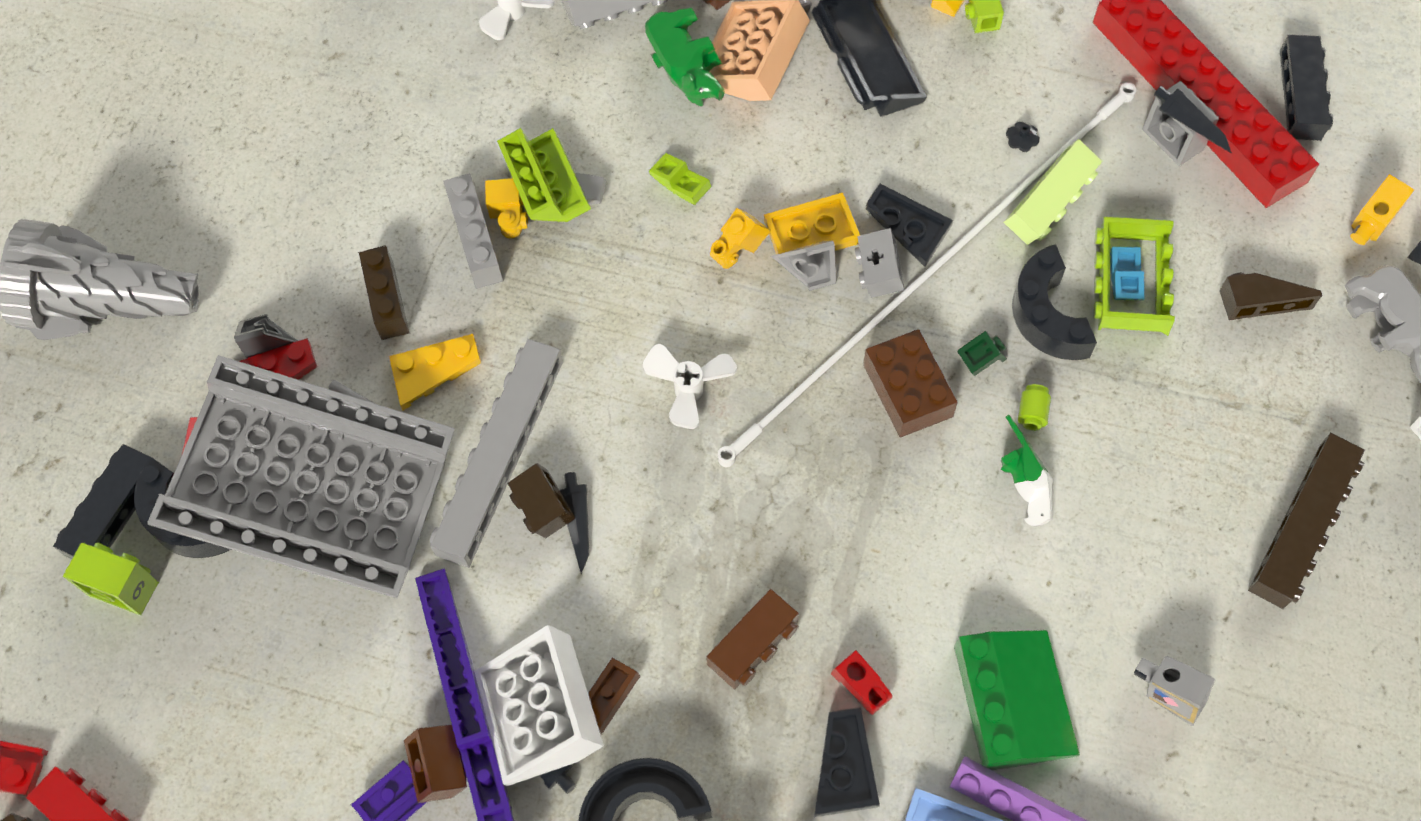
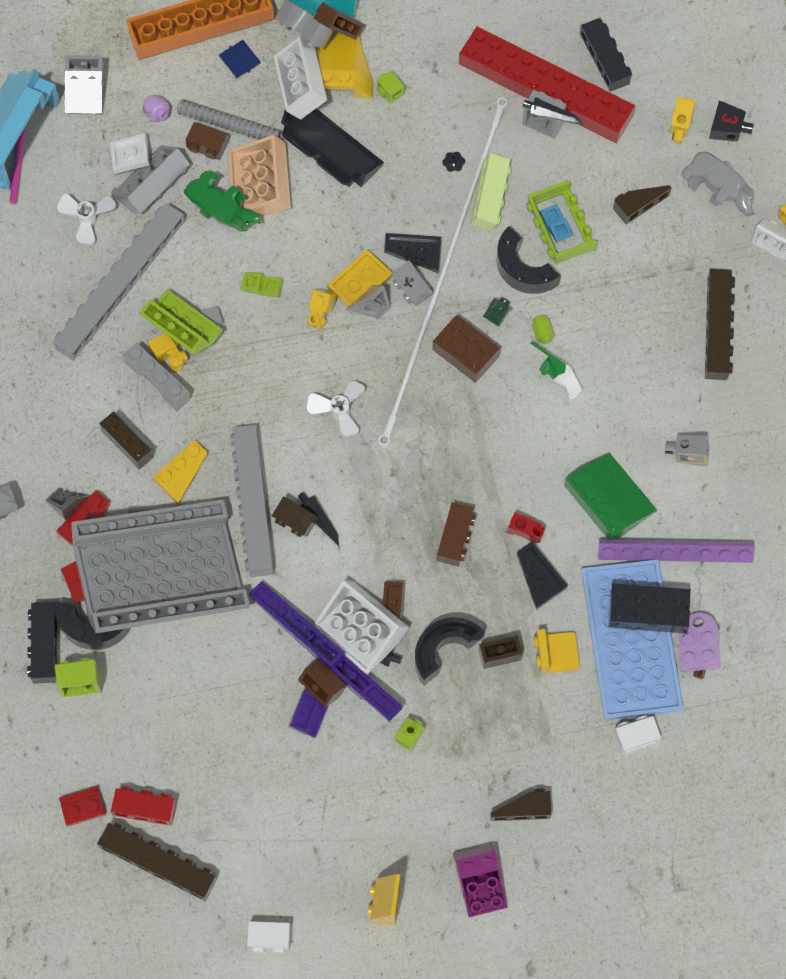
camera: 30 degrees left, 5 degrees up
(500, 95) = (118, 282): none -> light grey brick

